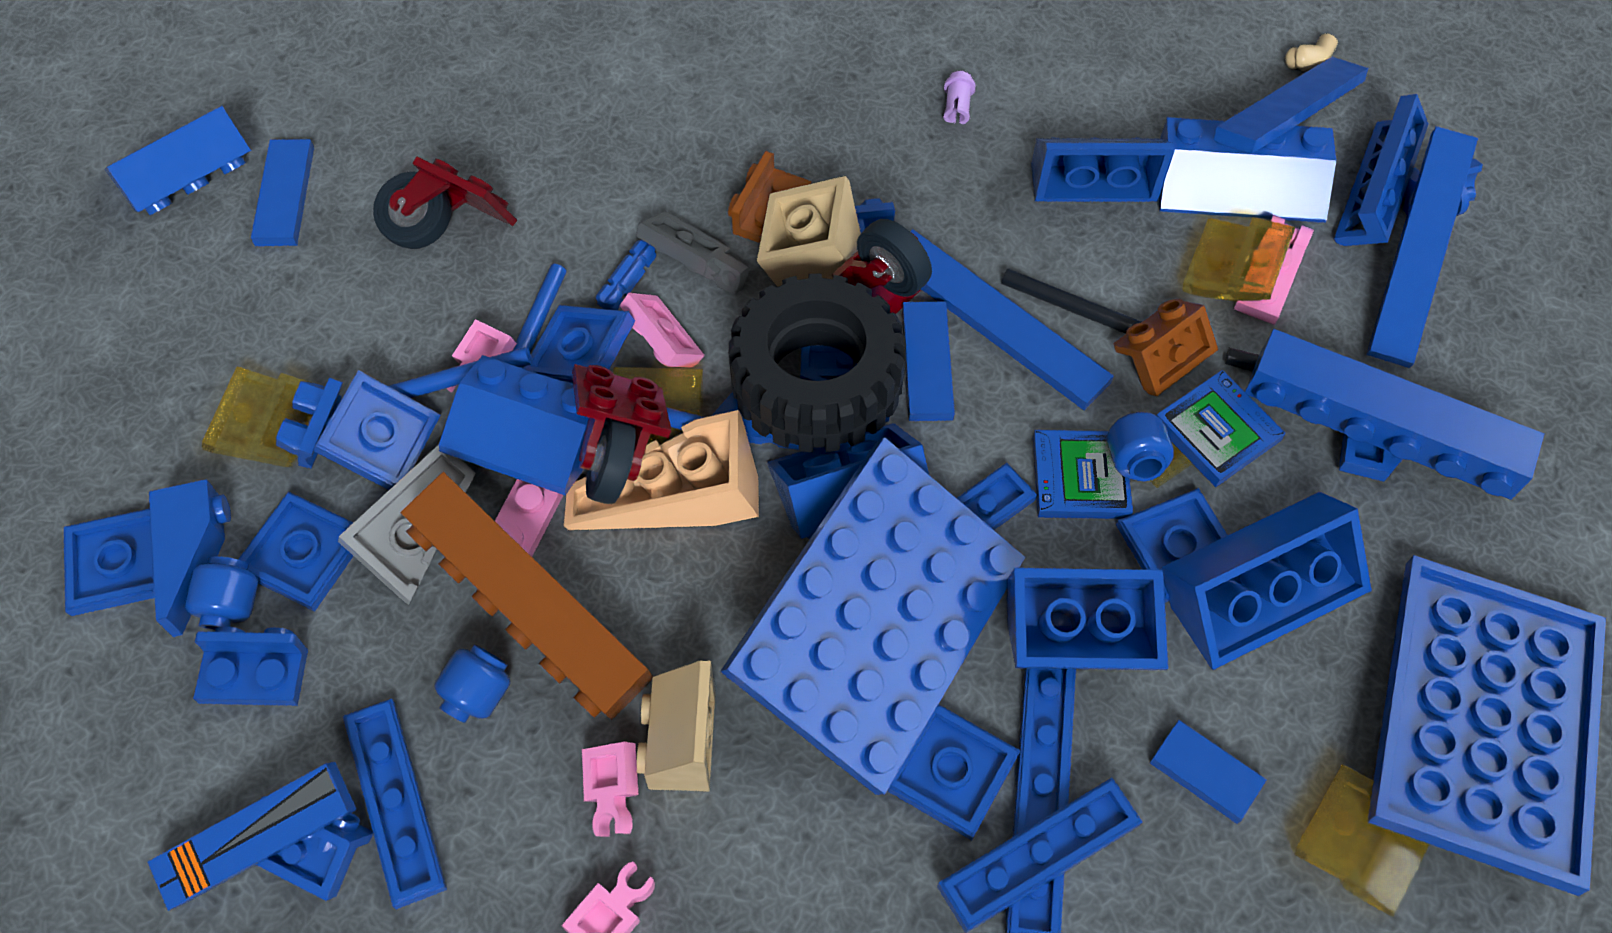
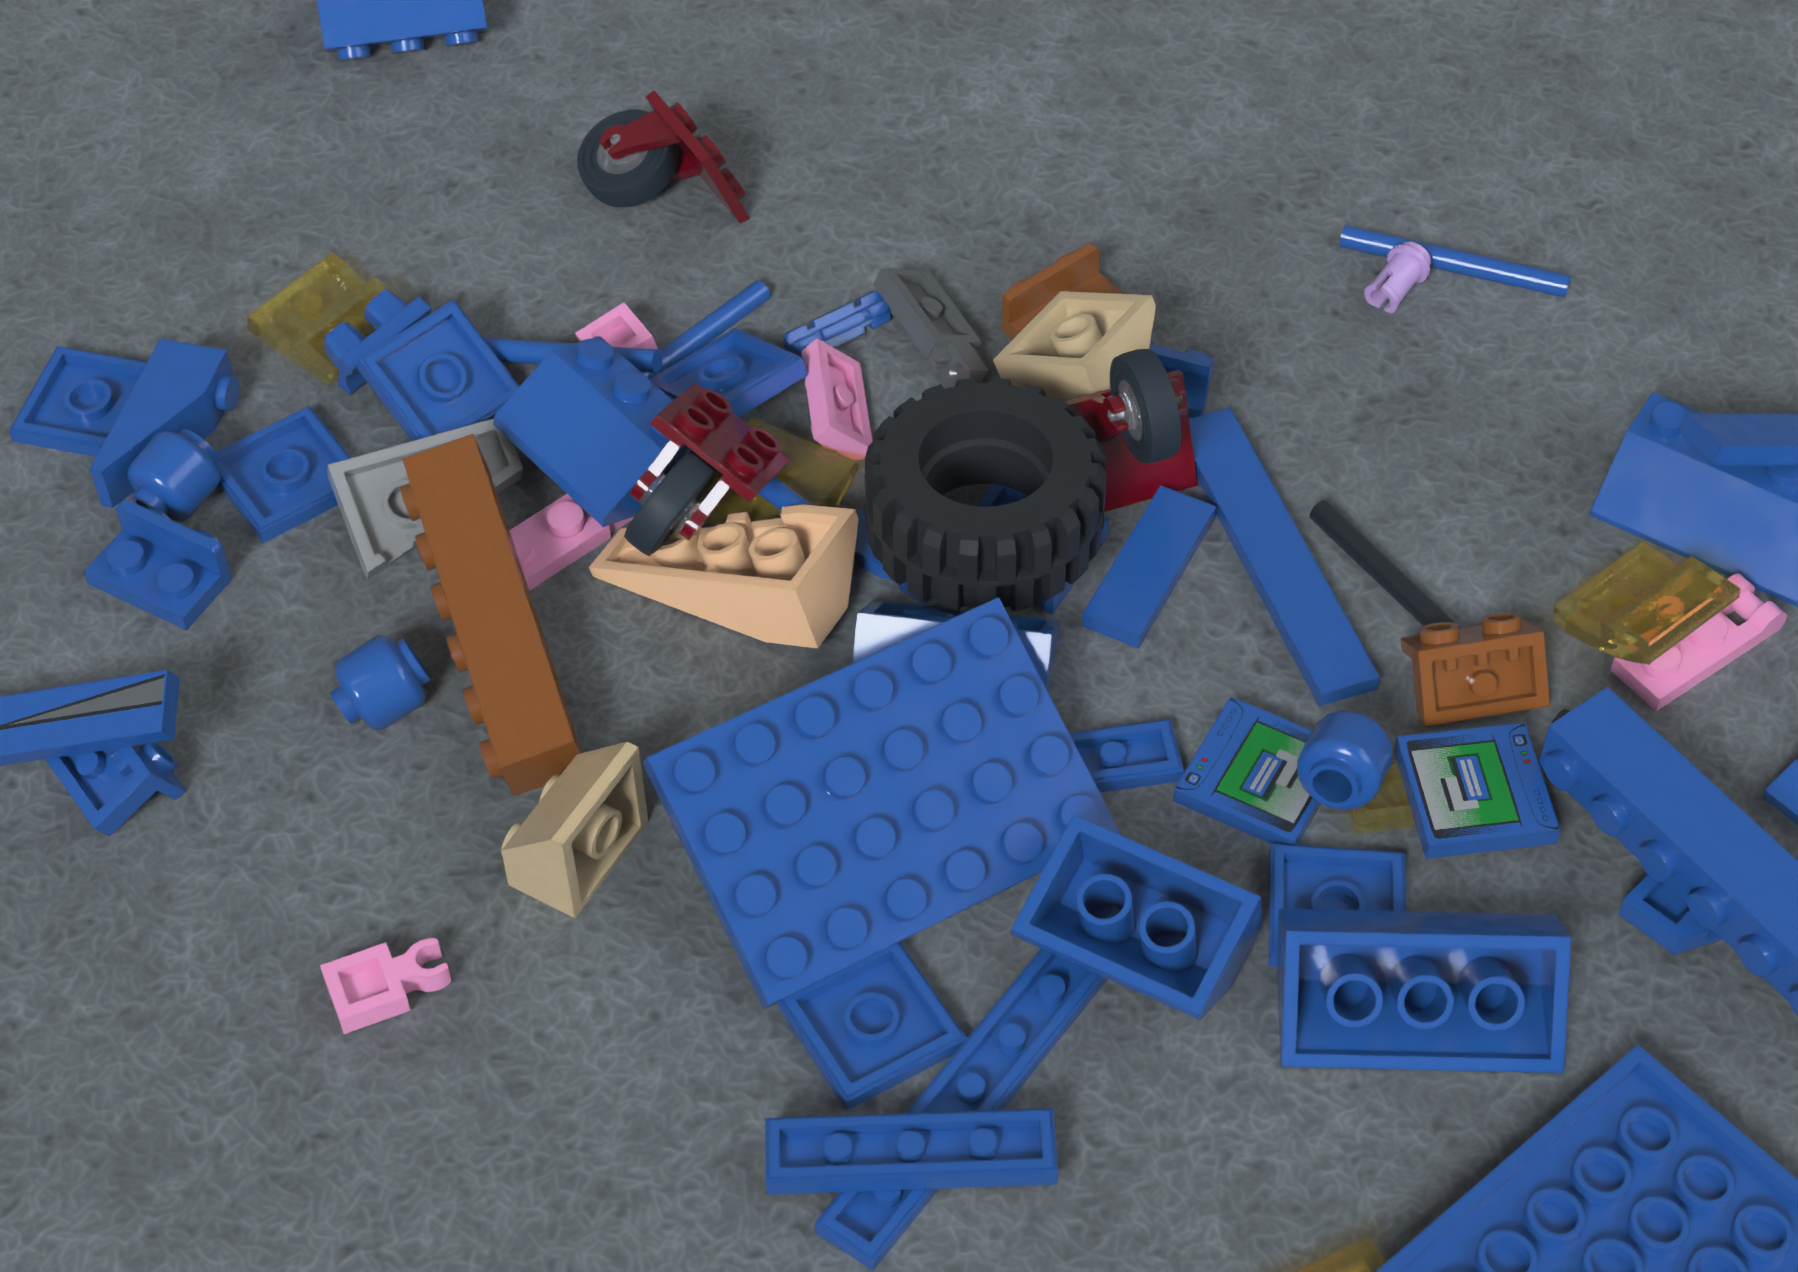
camera: 30 degrees right, 10 degrees down
(282, 193) = (498, 89): blue tile -> none
(394, 804) = (224, 771): blue tile -> none
(608, 780) = (464, 849): bright pink plate -> none
(985, 72) = (1462, 262): none -> blue bar
(1100, 169) = (1523, 426): blue slope -> none
(1208, 771) = (1191, 1171): blue tile -> none

